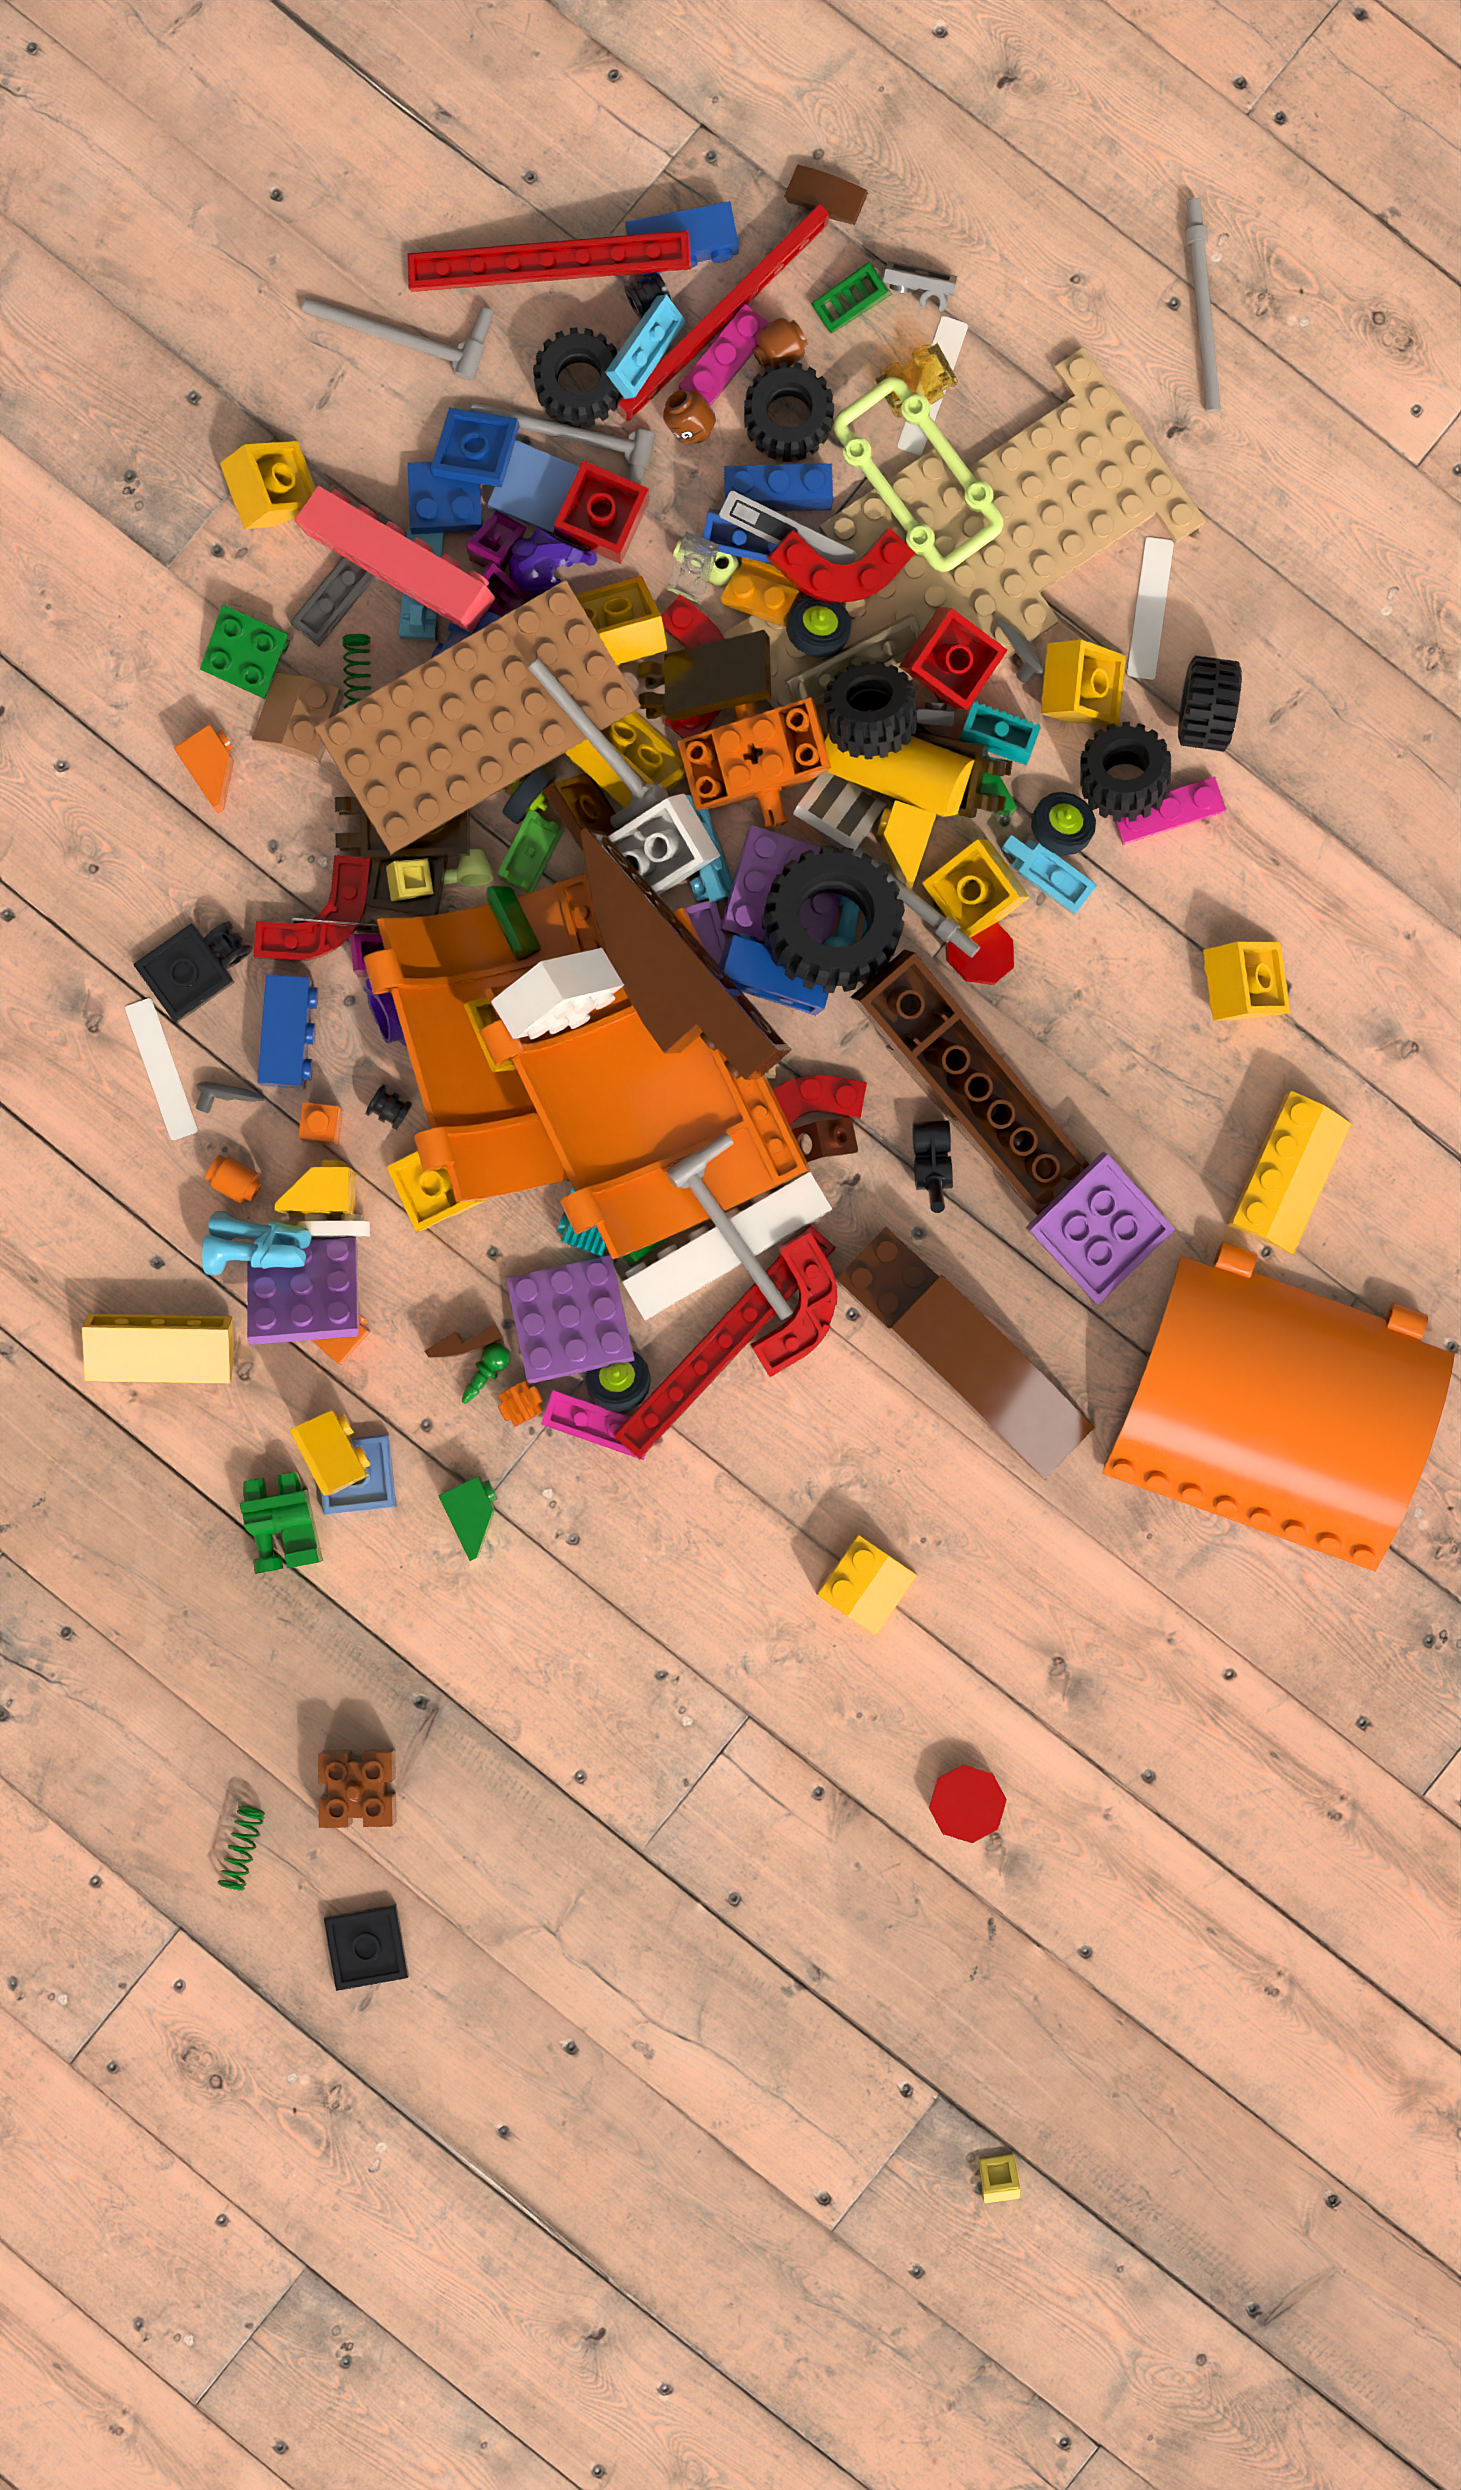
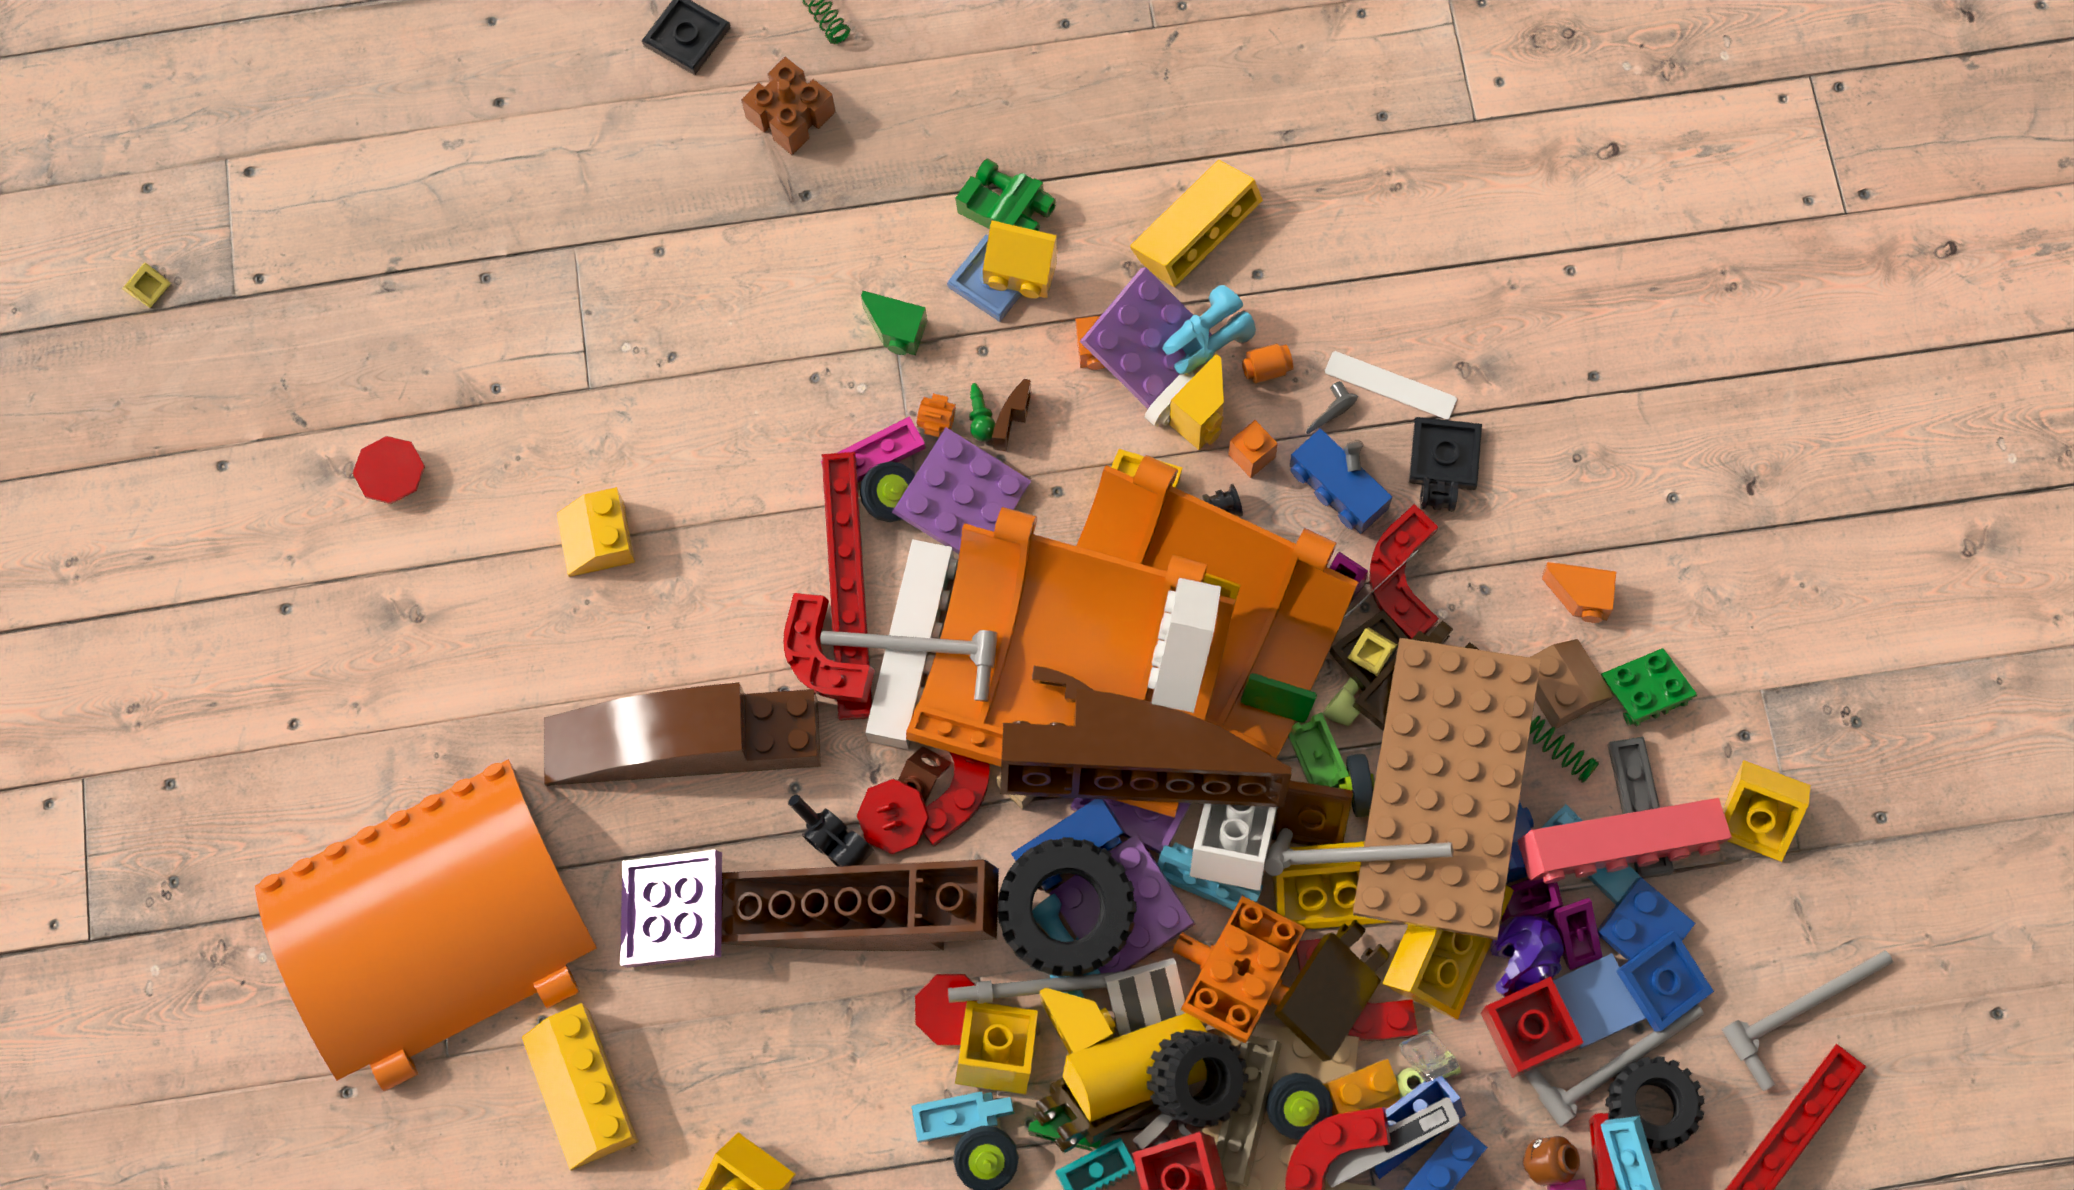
camera: 140 degrees right, 15 degrees down
(254, 1038) = (1352, 453): none -> dark grey bar
(655, 1067) = (1055, 678): none -> reddish brown slope
(874, 1132) = (892, 816): none -> red piece

